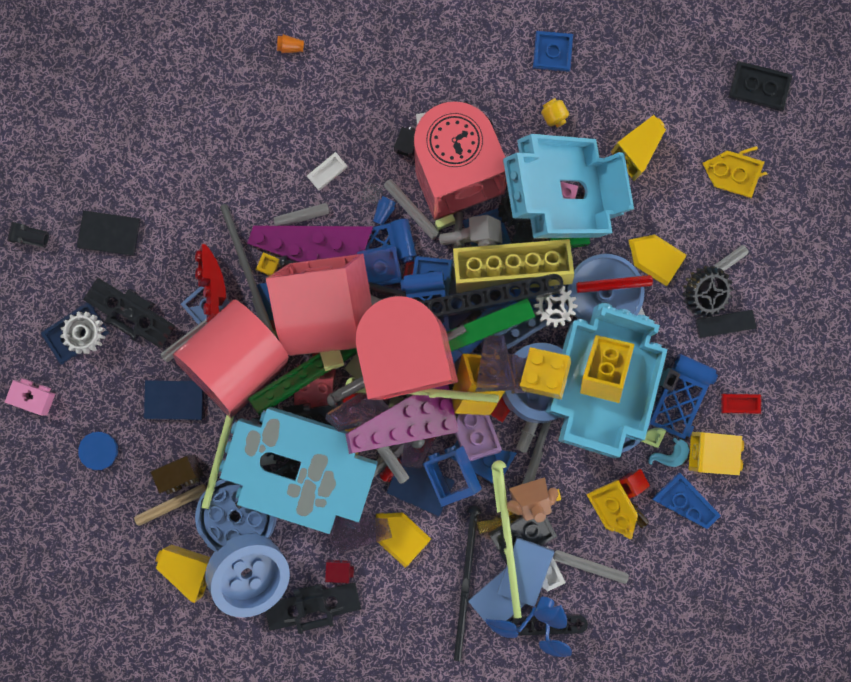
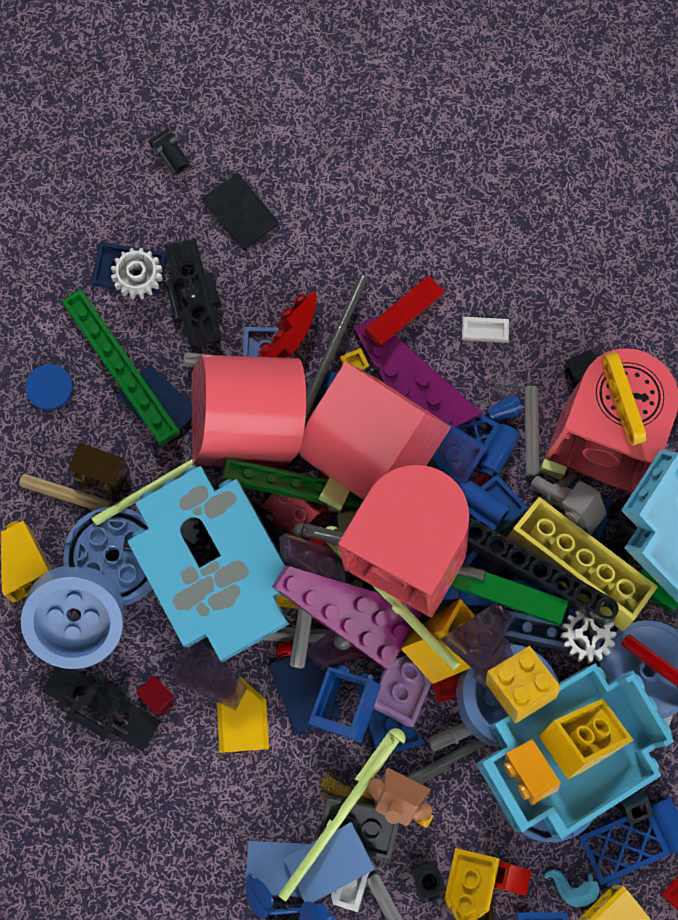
camera: 40 degrees right, 10 degrees down
(19, 397) = (33, 275): bright pink brick -> none
(129, 399) = (121, 368): none -> green tile
(268, 205) = (404, 311): none -> red tile
(289, 44) = (553, 191): orange cone -> none
(301, 215) = (427, 347): light grey axle -> none
(453, 147) = (623, 399): none -> yellow beam
(474, 511) = (249, 832): black bar -> none
(581, 523) = (420, 872): none -> black brick
(594, 418) = (531, 772): none -> light orange brick
(654, 436) = (571, 853): yellowish green tile -> none

